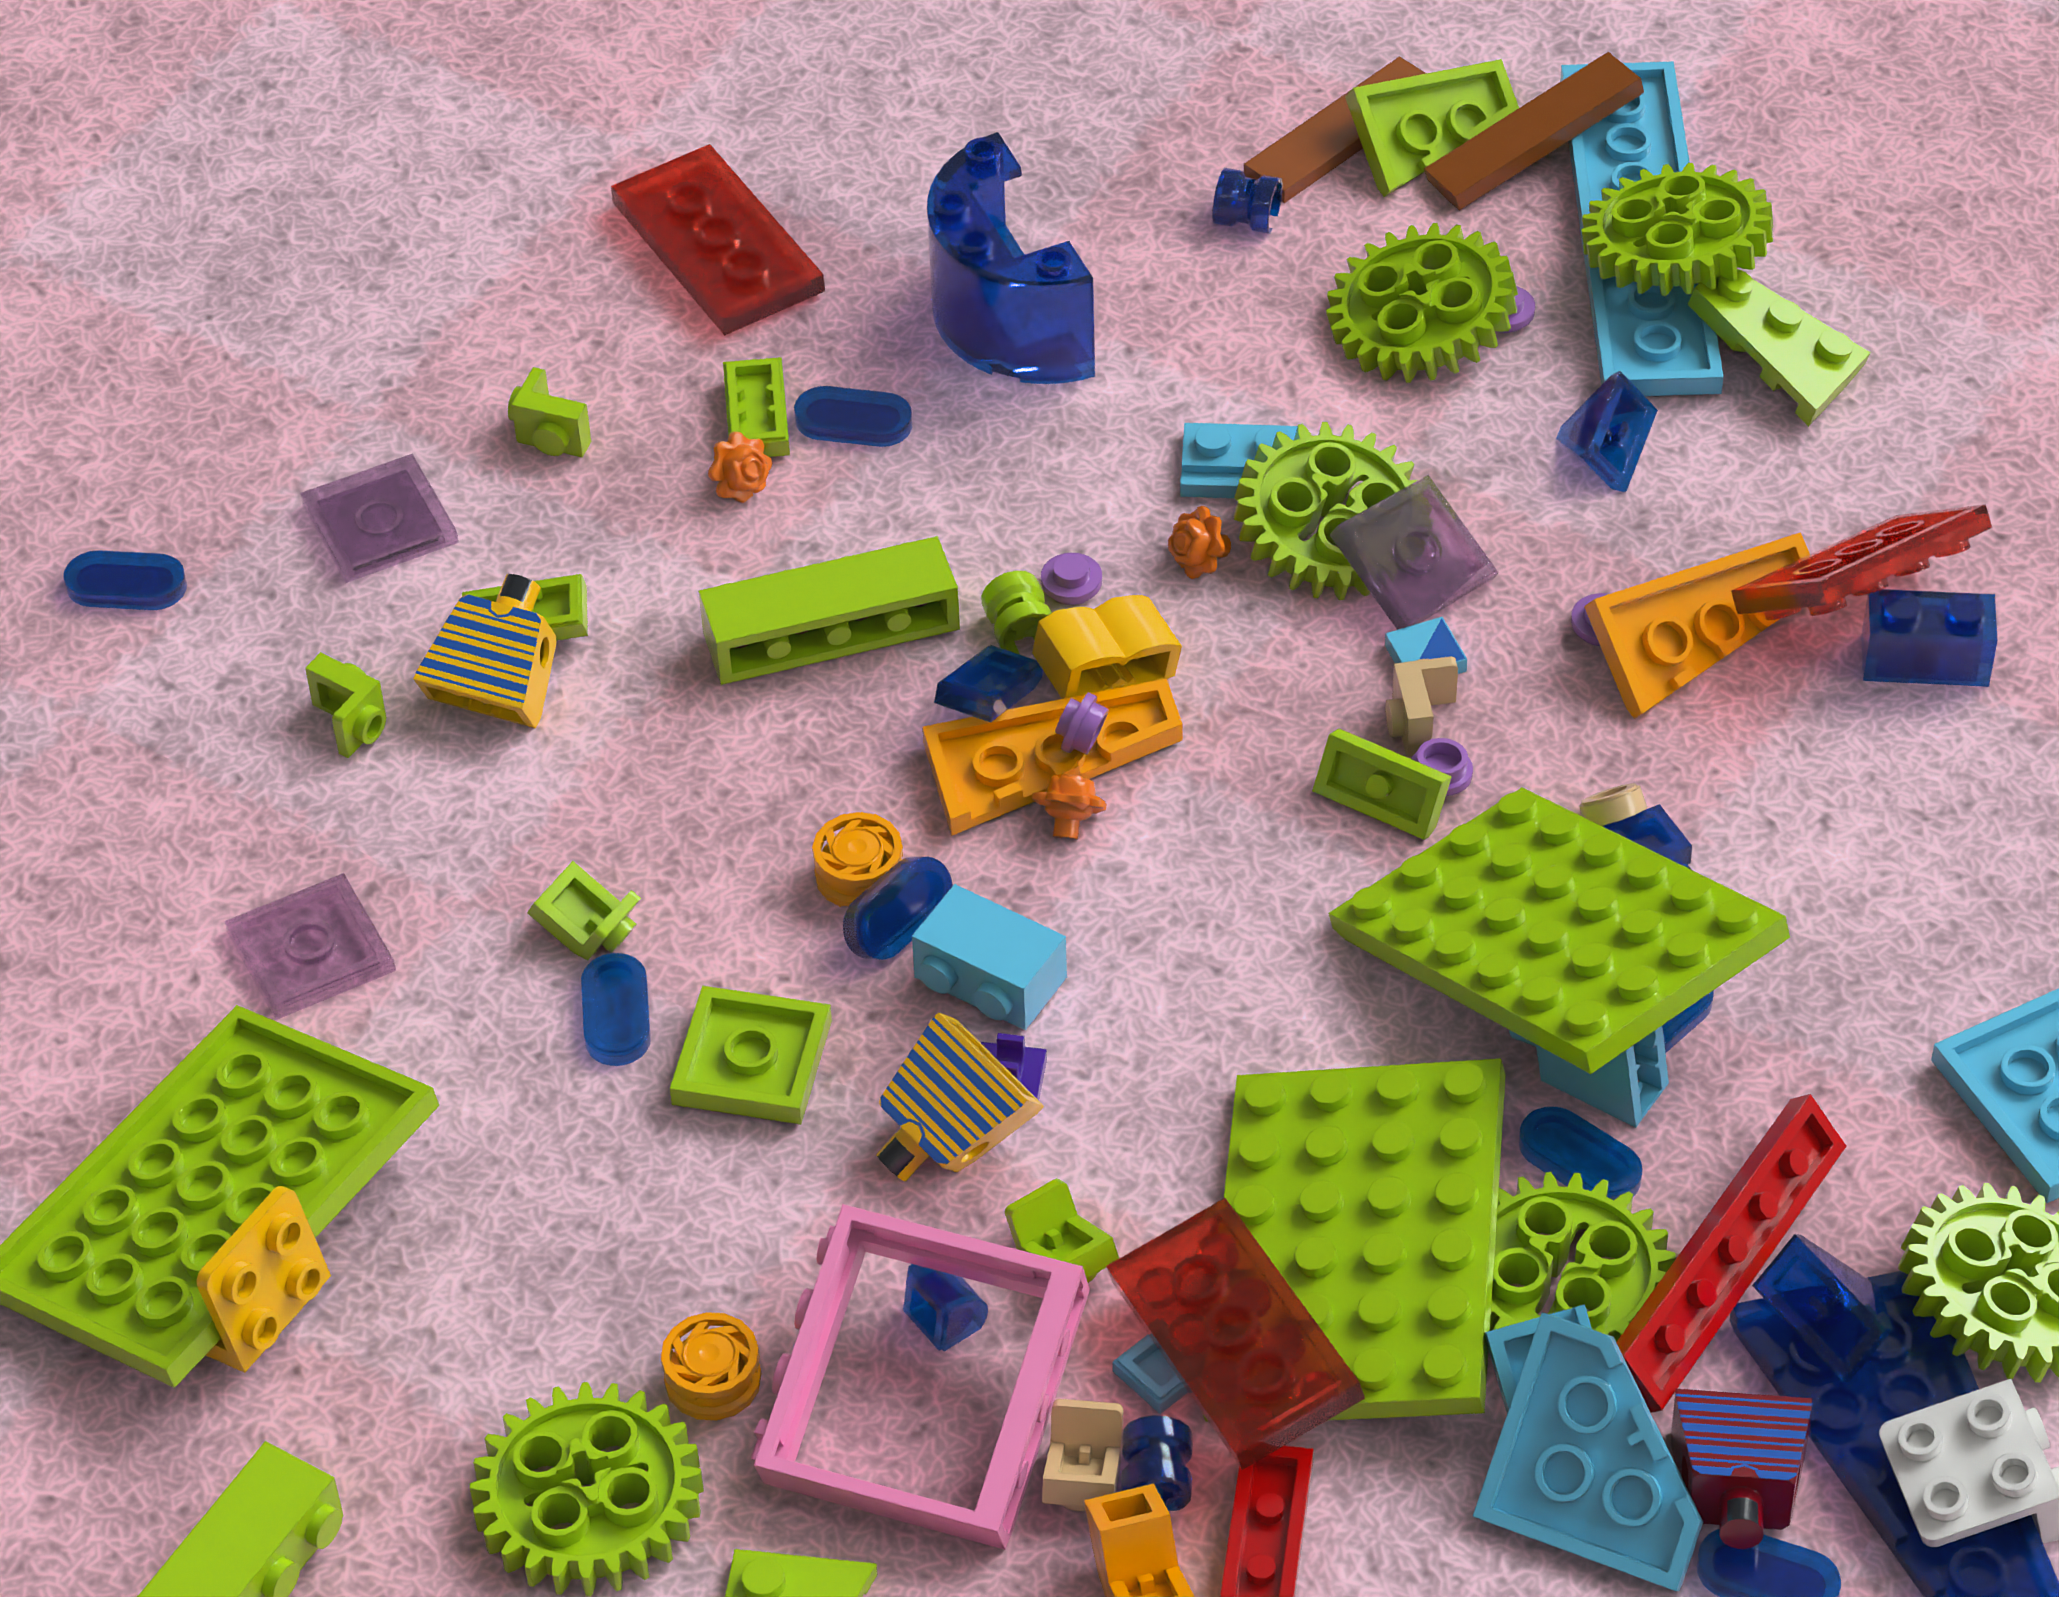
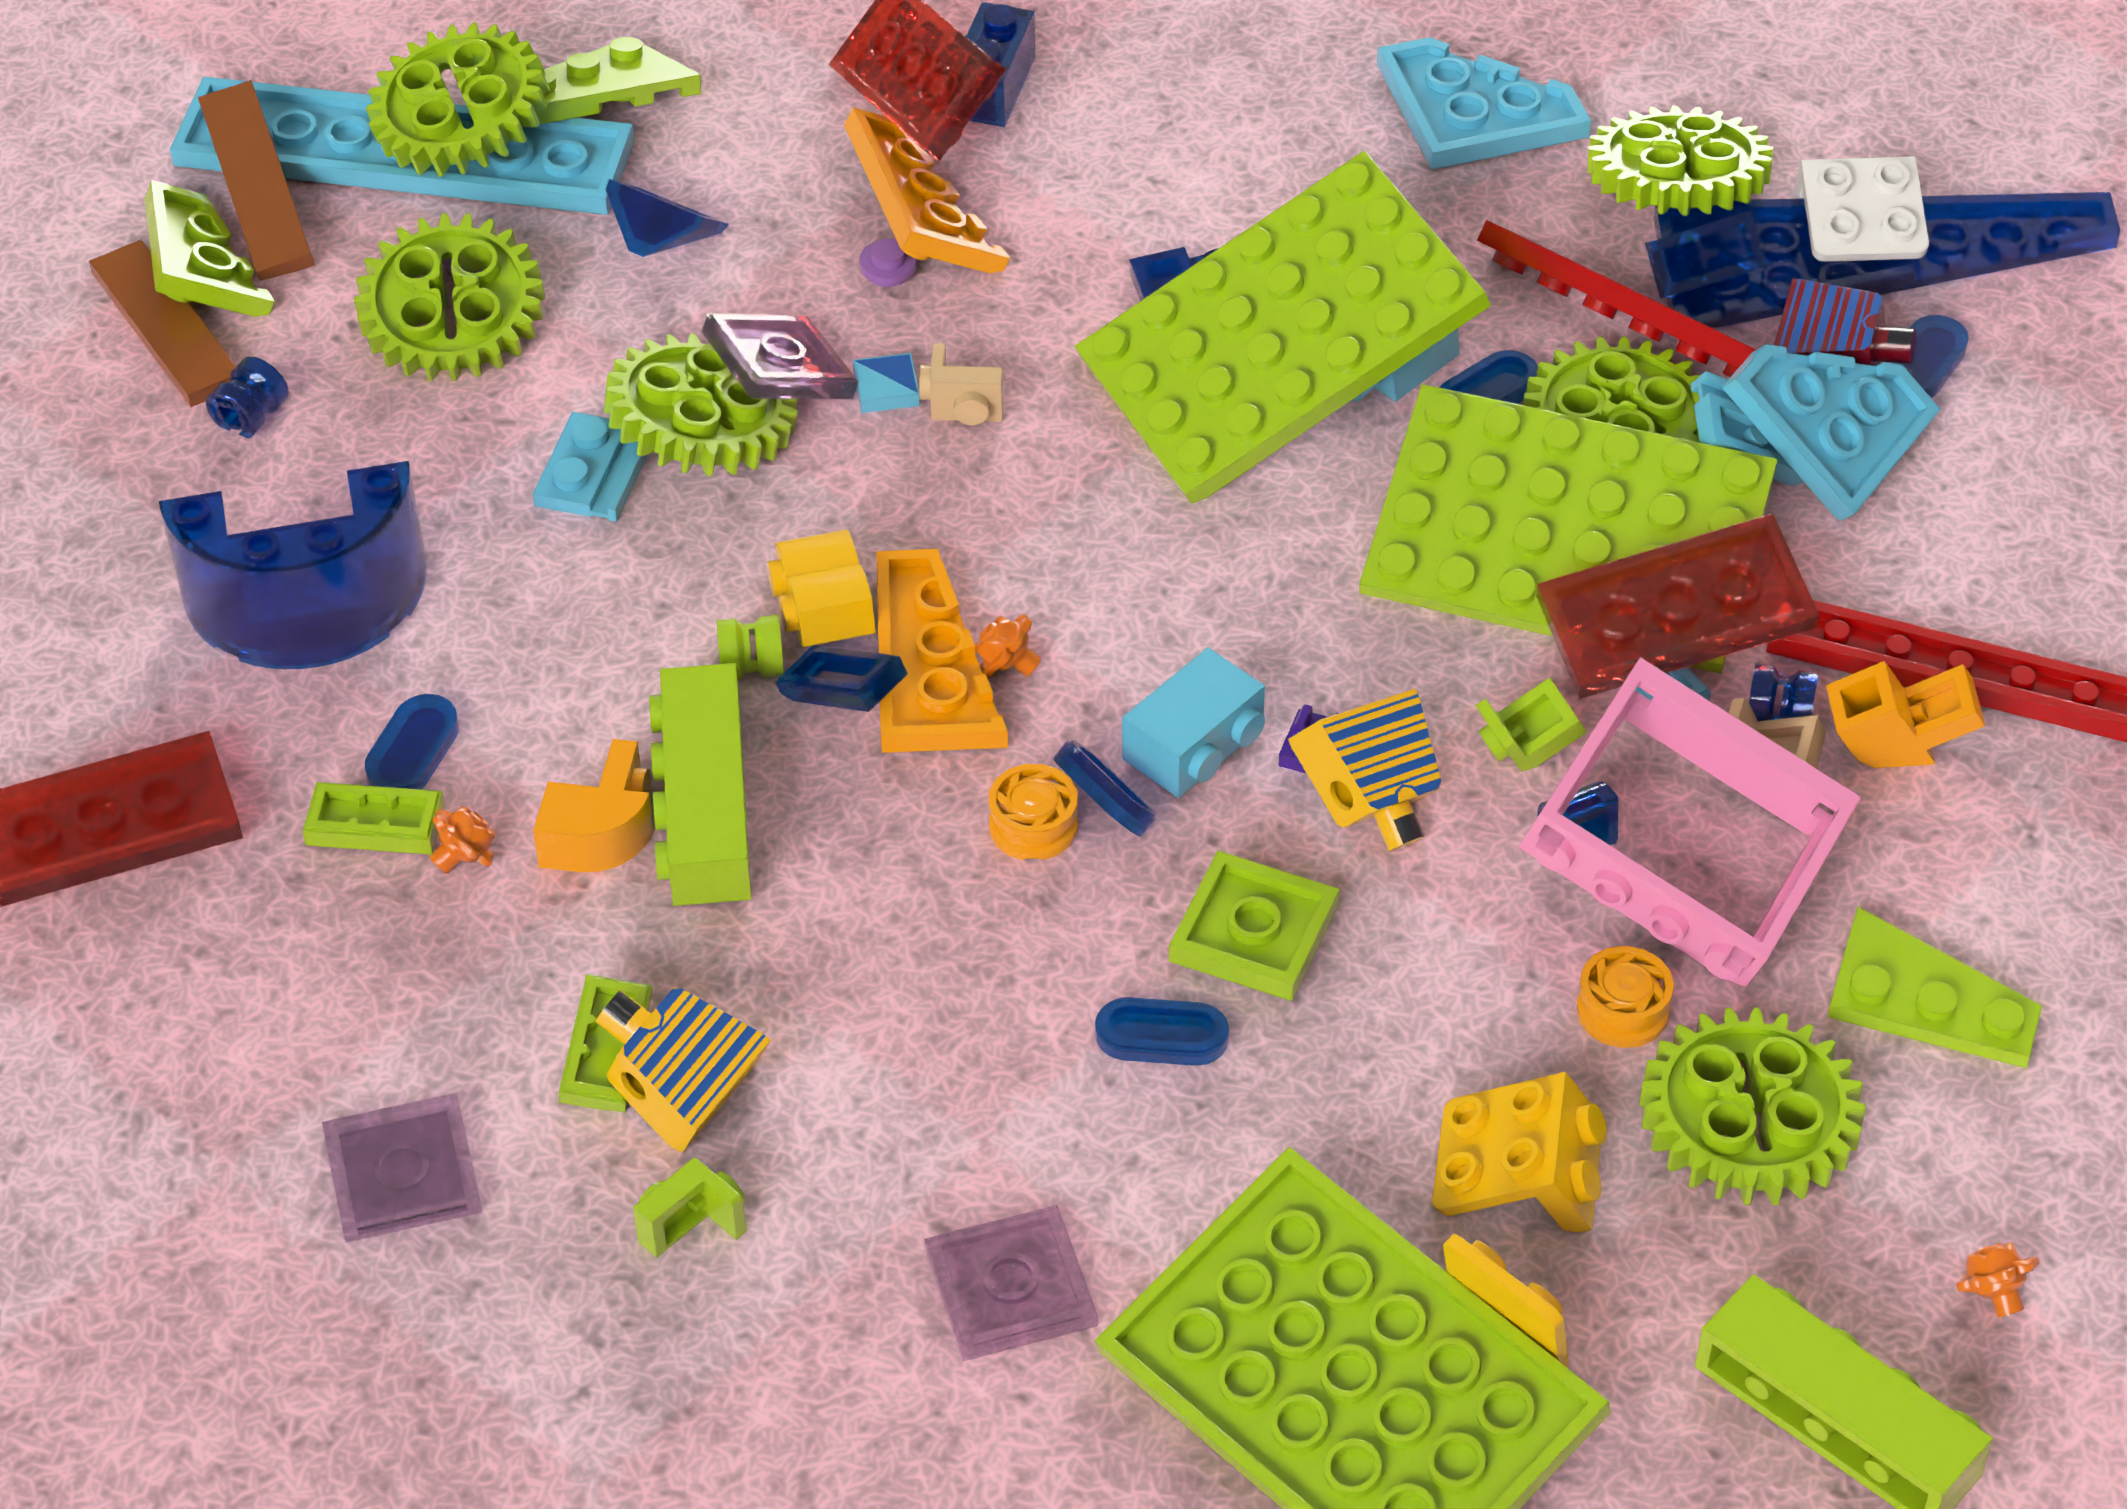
camera: 80 degrees left, 0 degrees up
(125, 580) = (408, 1418): clear blue tile -> none
(496, 1309) = (1522, 1145): none -> yellow bracket
(548, 421) = (332, 989): lime bracket -> none
(584, 913) = (1051, 1030): lime bracket -> none
(769, 543) = (597, 826): none -> light orange brick
(1071, 578) = (703, 605): medium lavender plate -> none
(1081, 724) = (938, 603): medium lavender plate -> none
(1198, 542) = (702, 505): orange plant -> none
(1381, 783) = (1050, 429): lime plate -> none
(1447, 758) = (1034, 393): medium lavender plate -> none
(1613, 804) = (1117, 289): tan tile -> none

